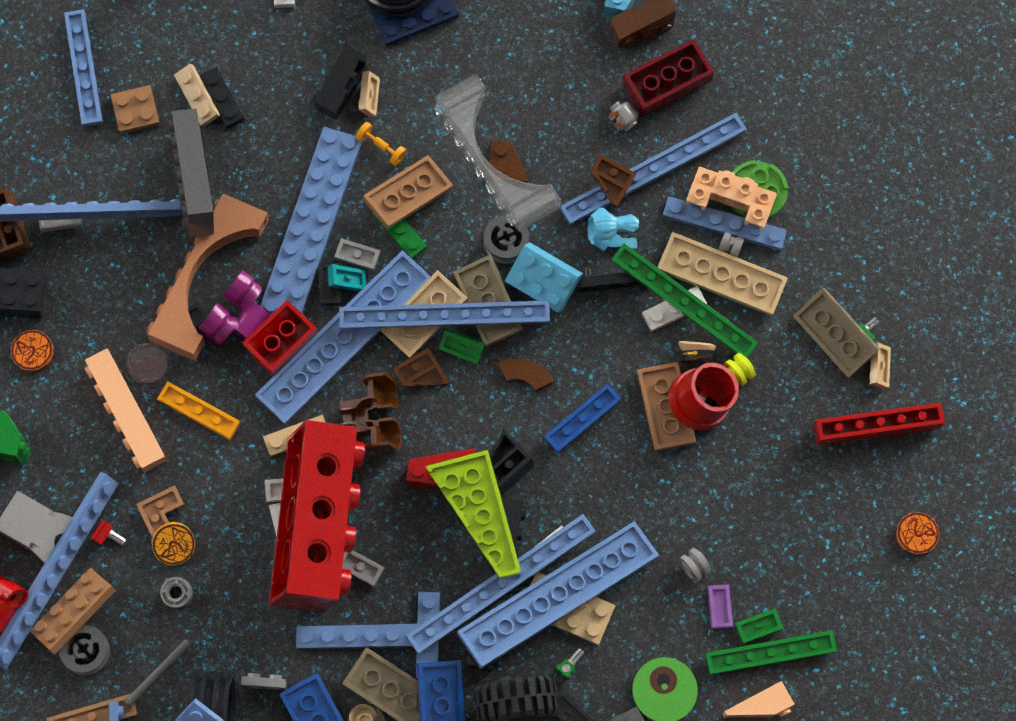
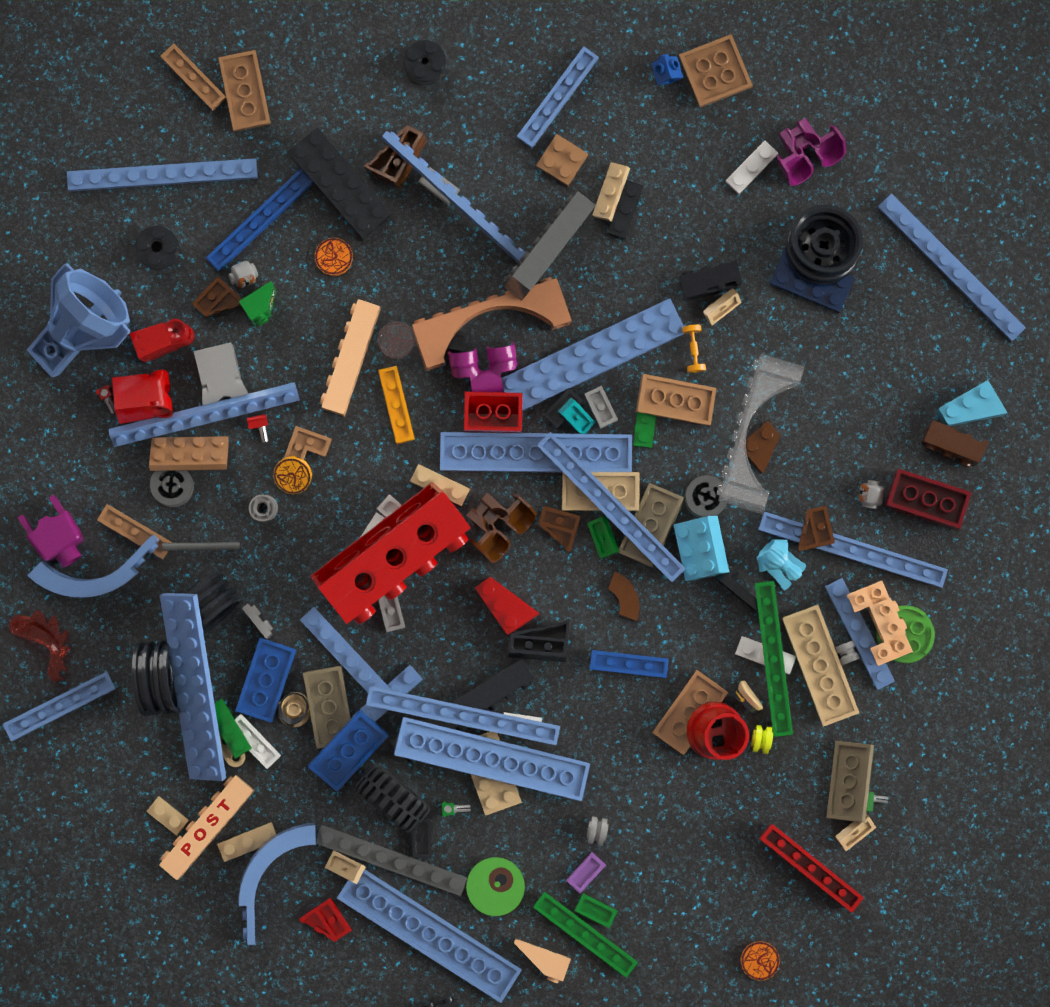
camera: 50 degrees right, 10 degrees up
(475, 498) = (501, 649): lime wing -> none

